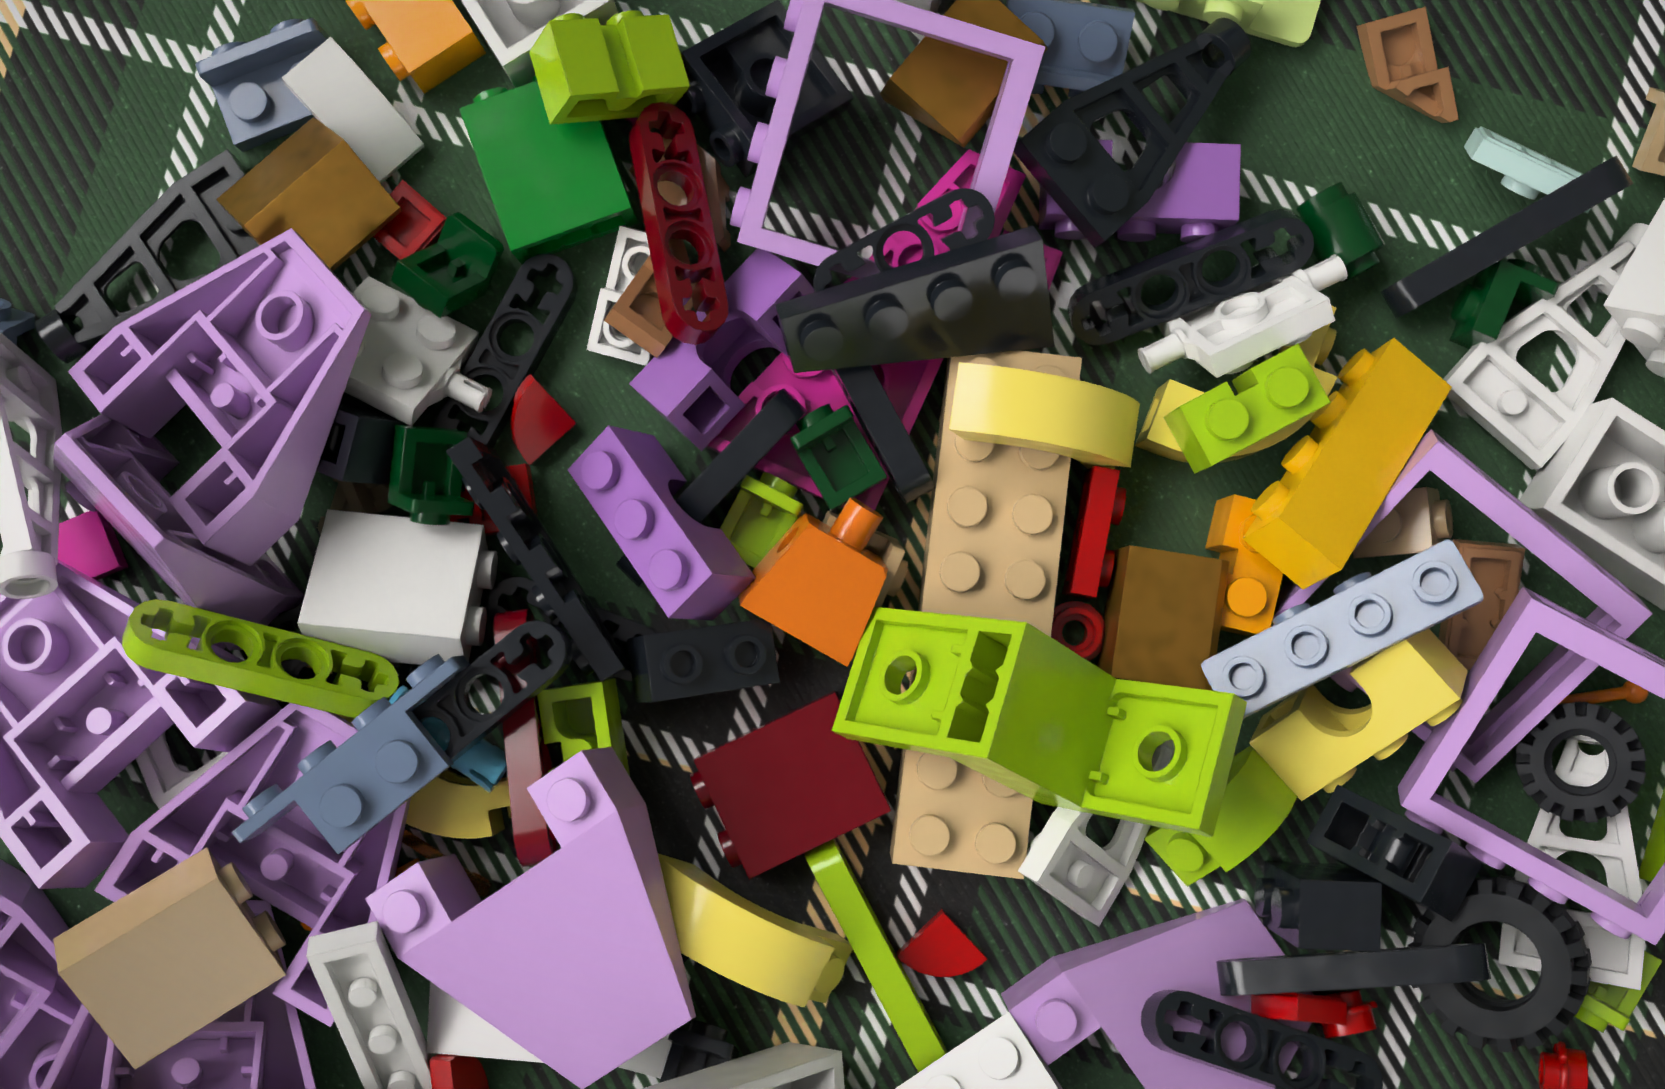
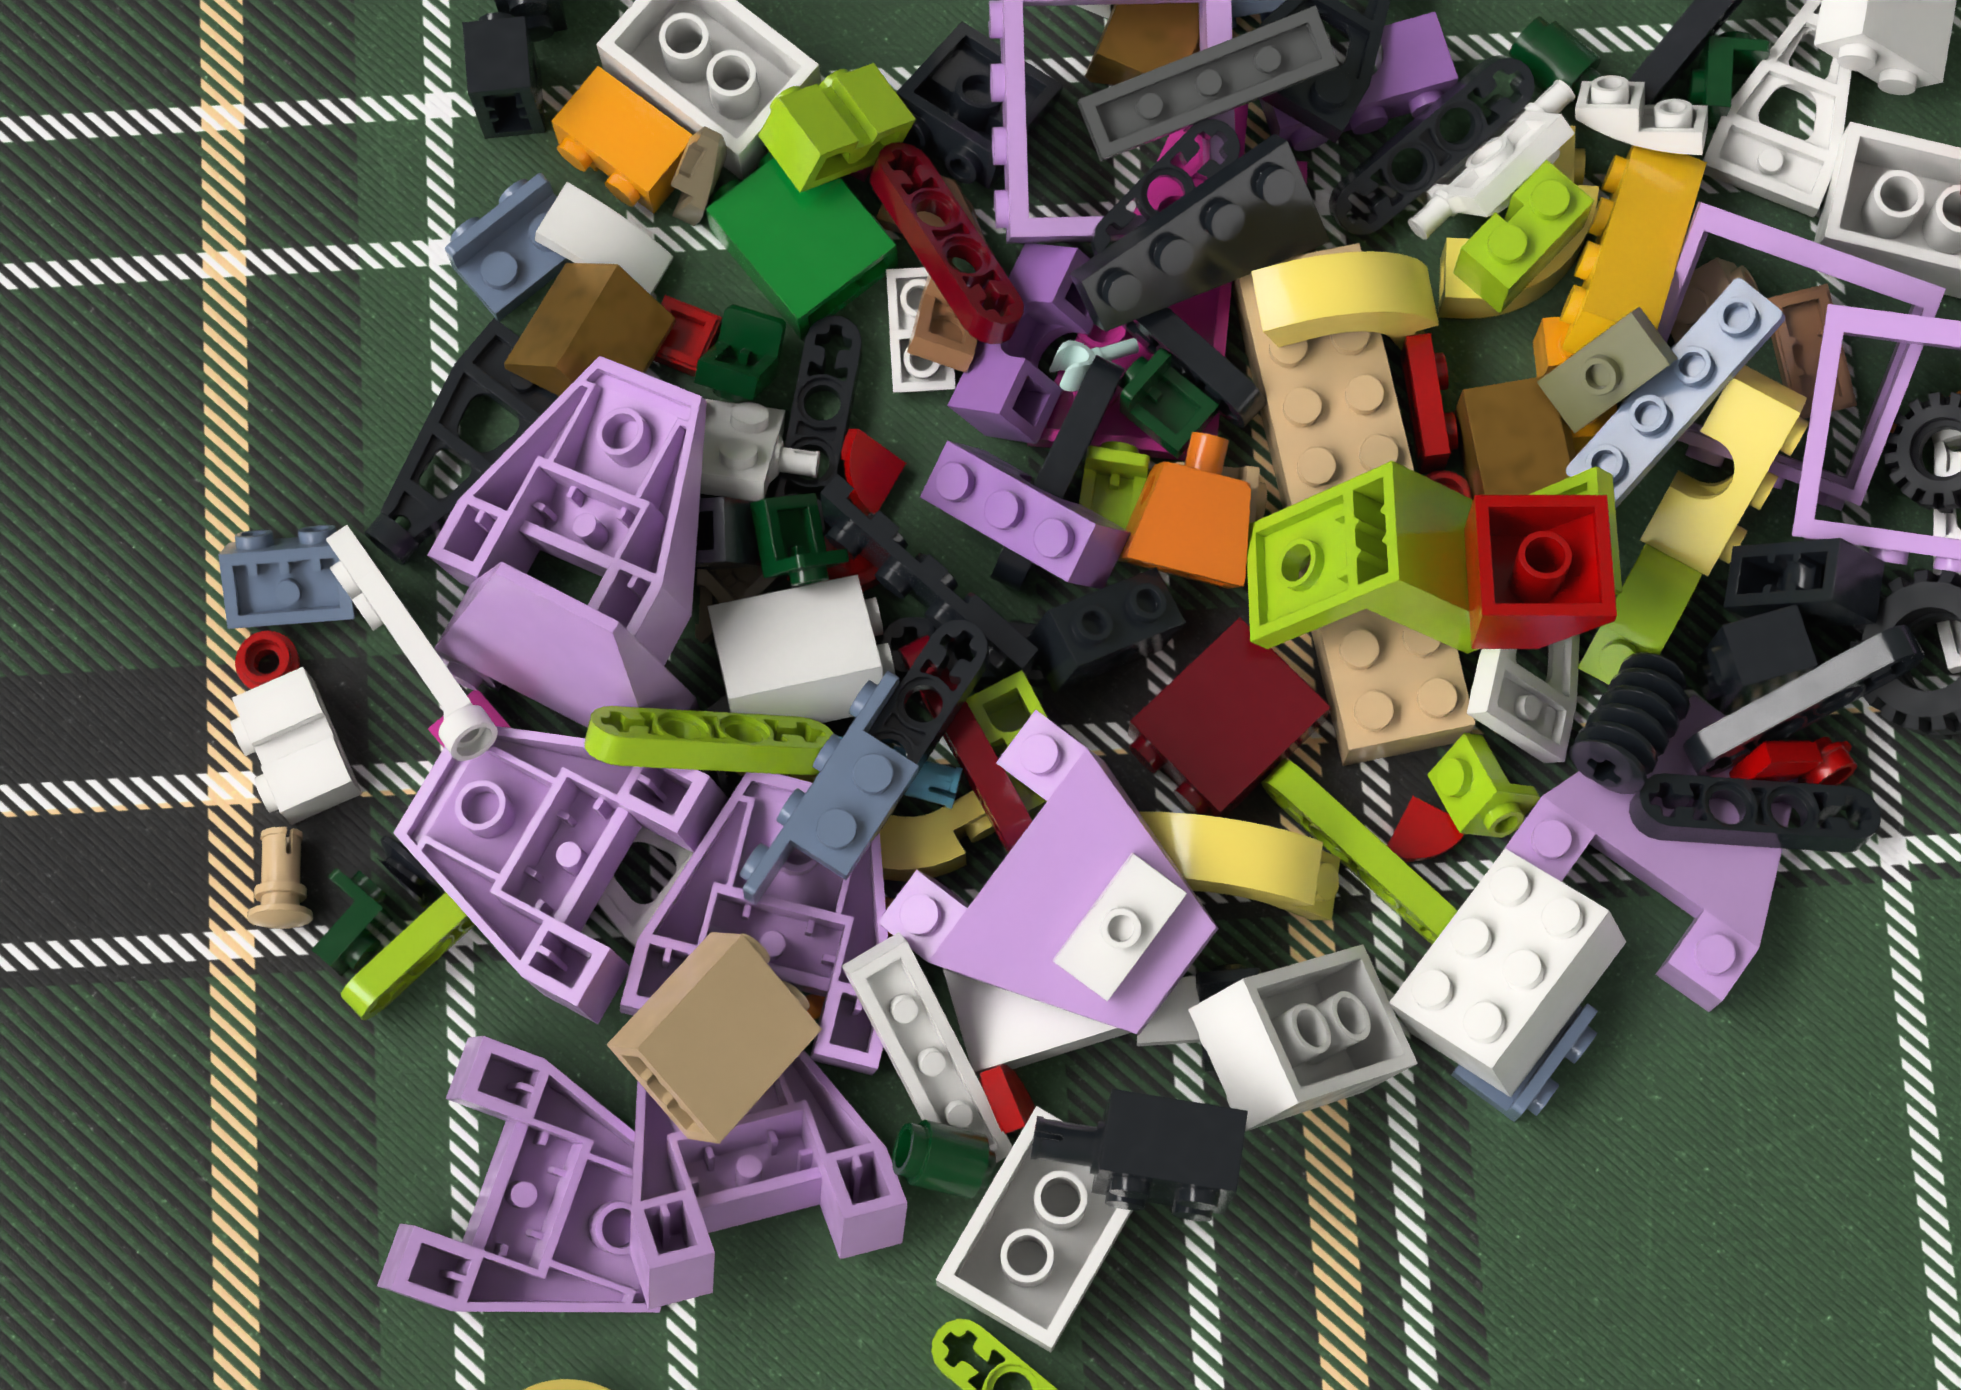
camera: 15 degrees left, 10 degrees down
(464, 70) = (698, 174): none -> dark tan slope
(593, 993) = (1119, 926): none -> white plate
(771, 381) = (1077, 358): none -> light aqua hand
(984, 151) = (1208, 83): none -> dark grey plate
(1004, 933) = (1478, 790): none -> lime bracket
(1137, 784) = (1537, 569): none -> red slope
(1175, 932) = (1632, 723): none -> black piece
(1281, 584) = (1607, 370): none -> olive plate
(1384, 308) = (1619, 111): none -> white slope

